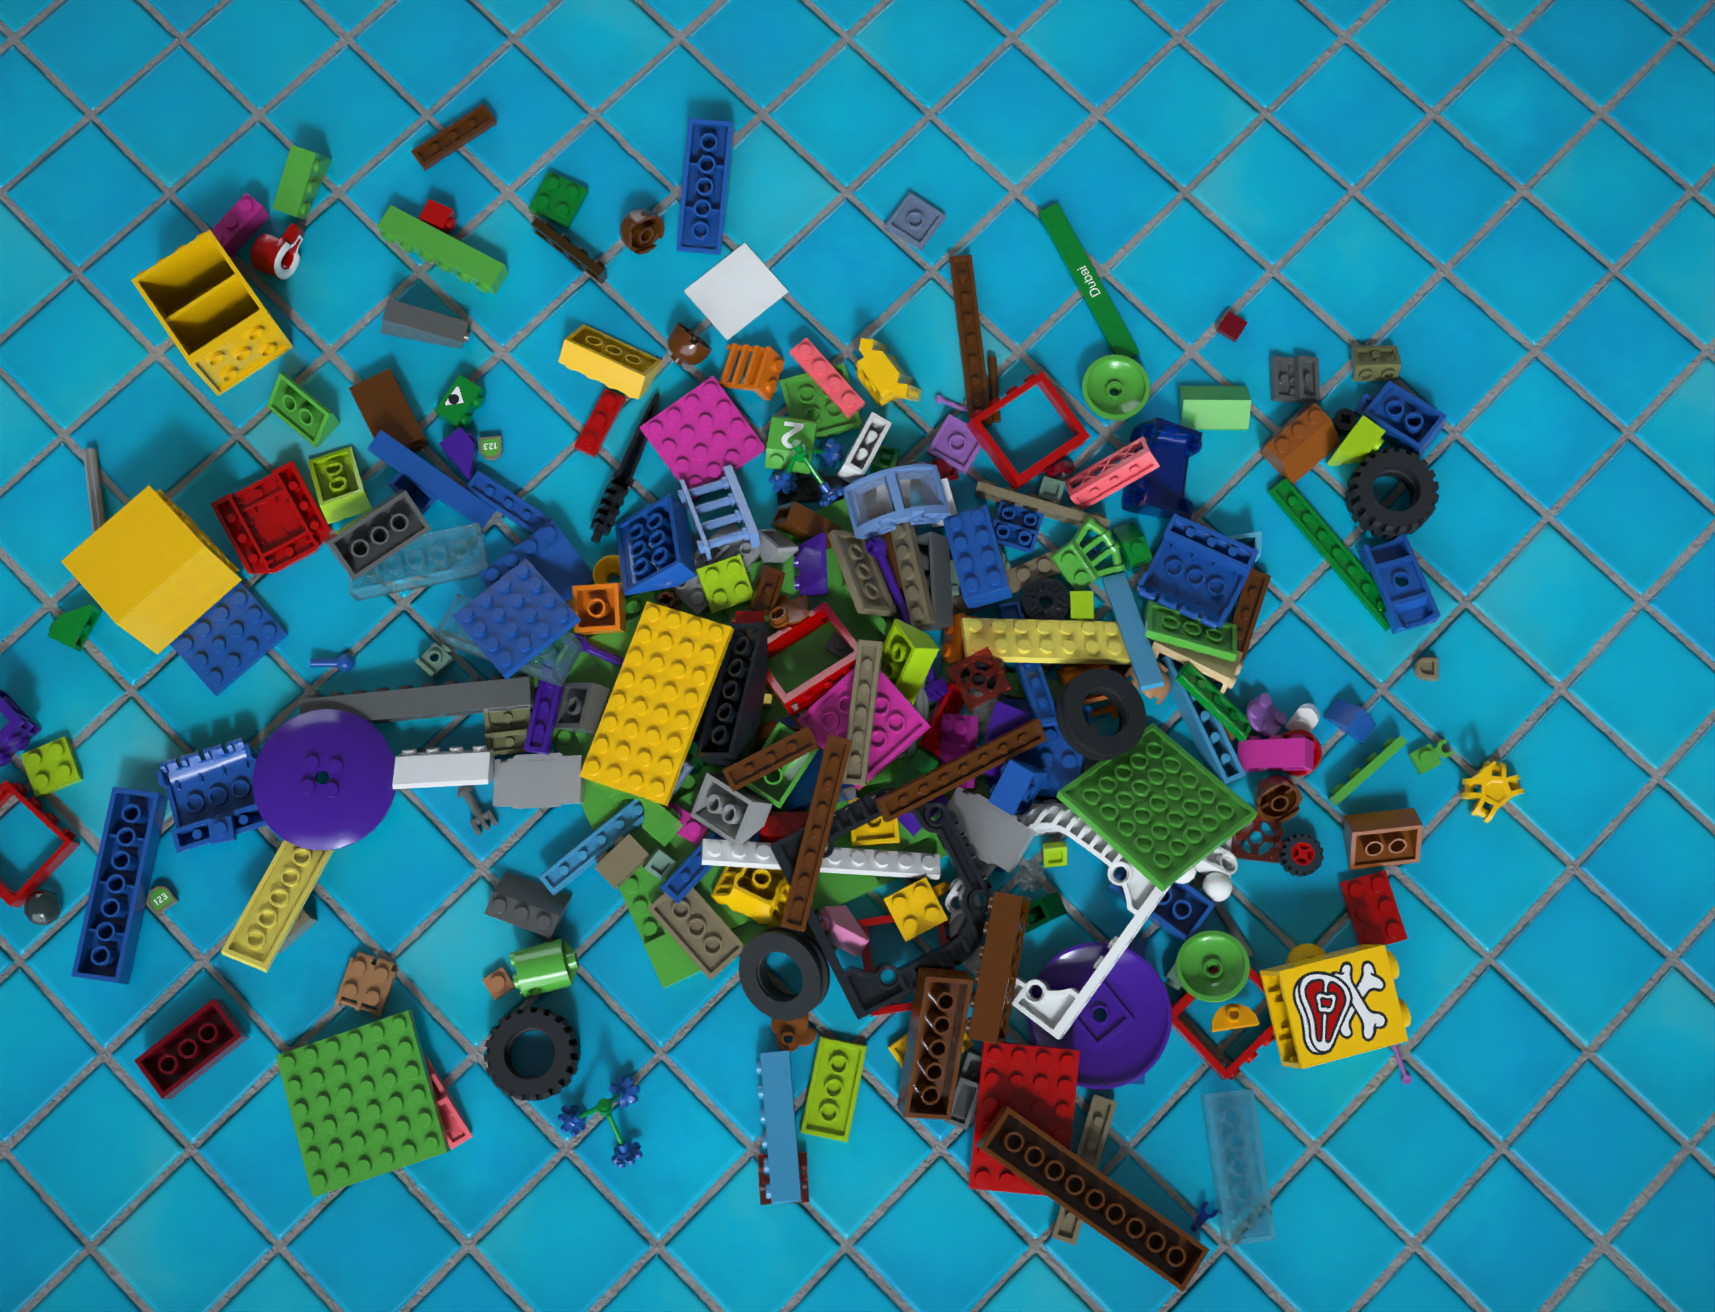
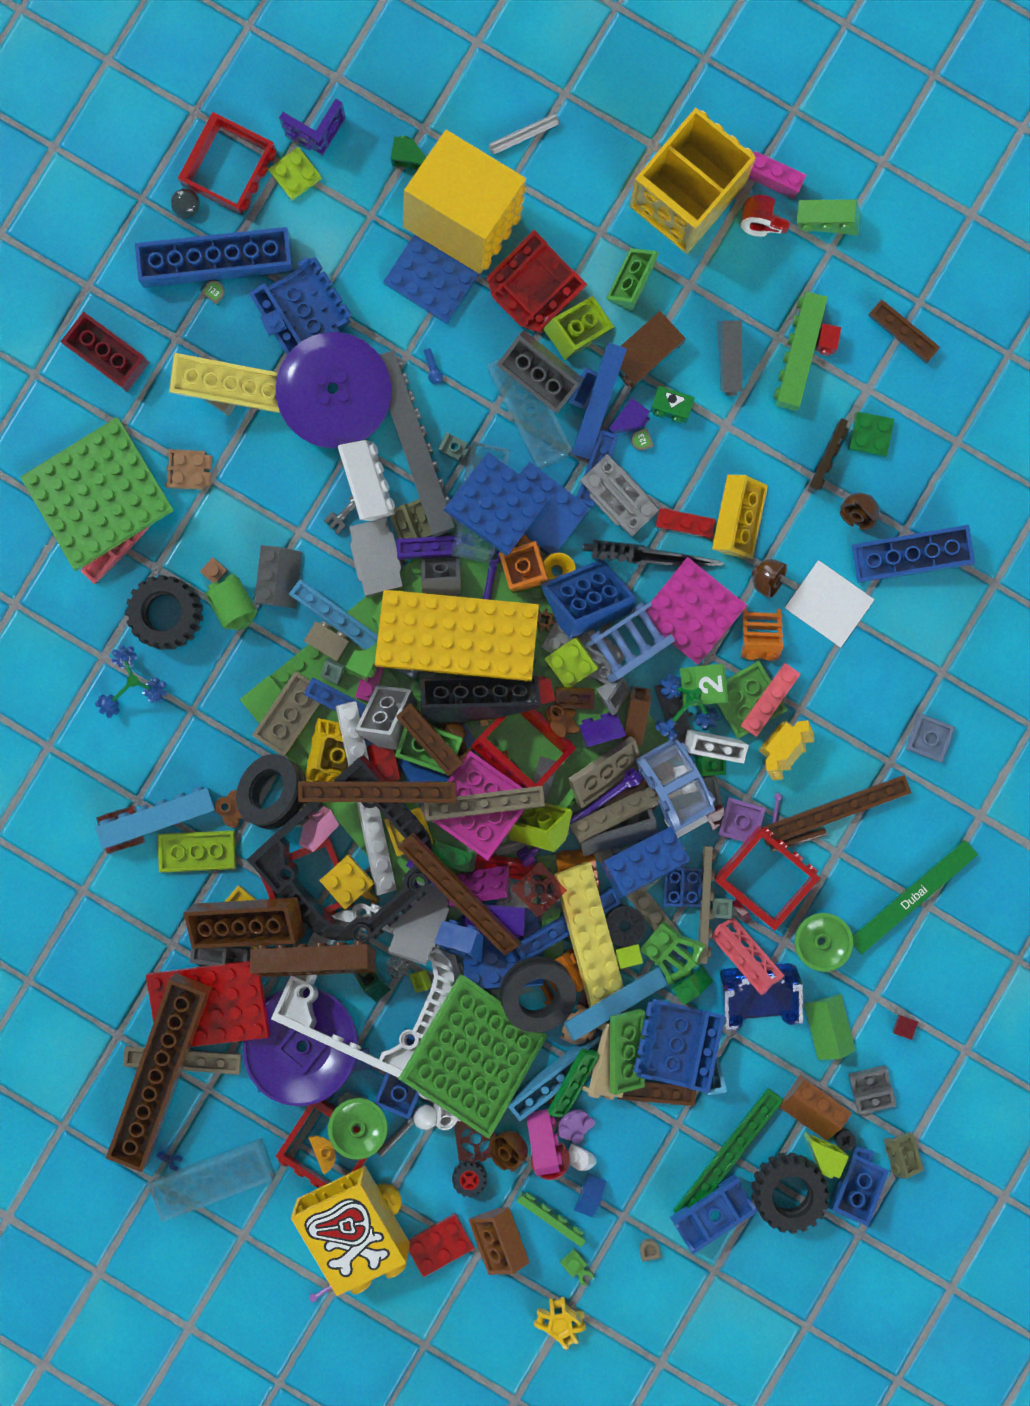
camera: 75 degrees right, 10 degrees up
(547, 487) = (618, 495): none -> light grey piece

